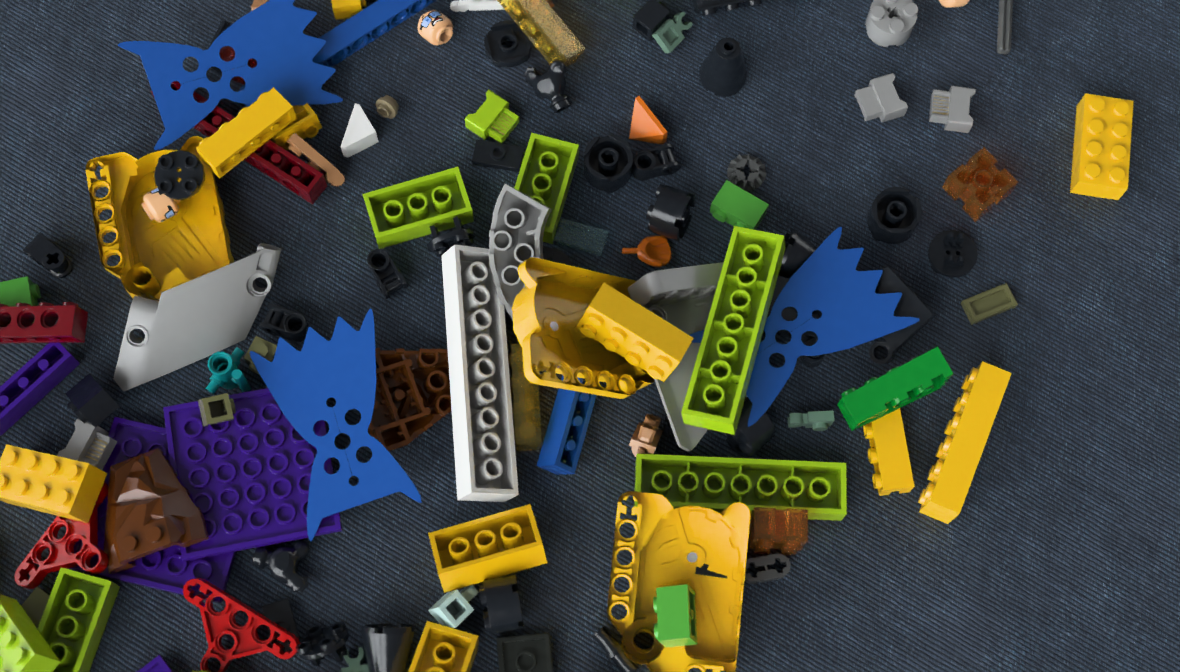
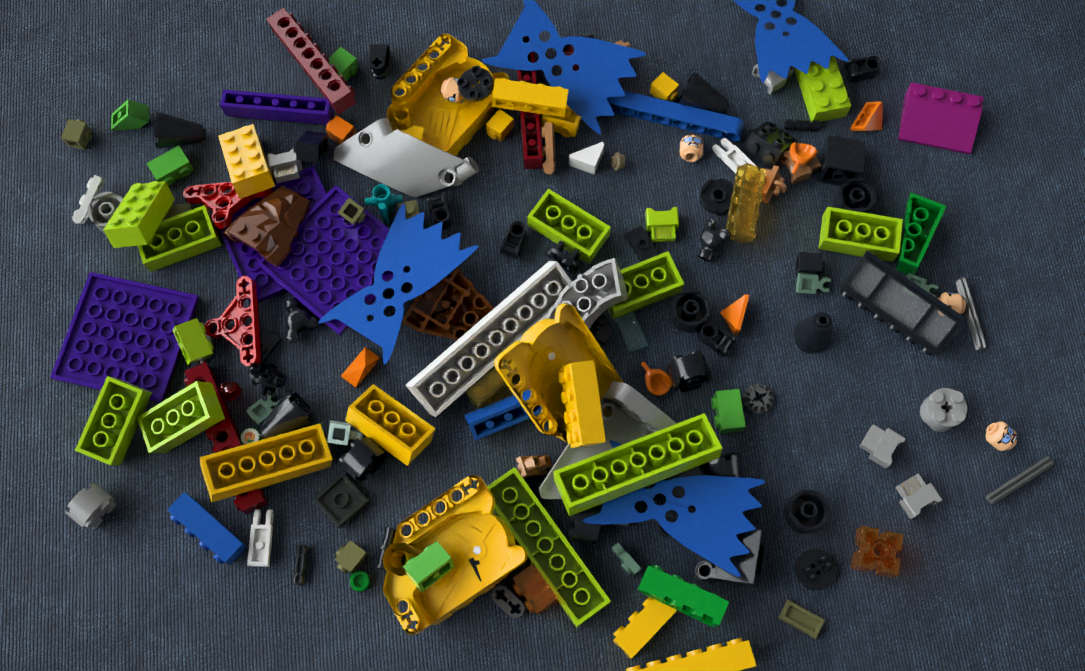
camera: 55 degrees right, 0 degrees up
(97, 358) = (340, 130): none -> orange brick
(242, 190) = (499, 125): none -> yellow brick
(391, 536) = (360, 367): none -> orange slope
(1102, 147) = (978, 615): yellow brick -> none

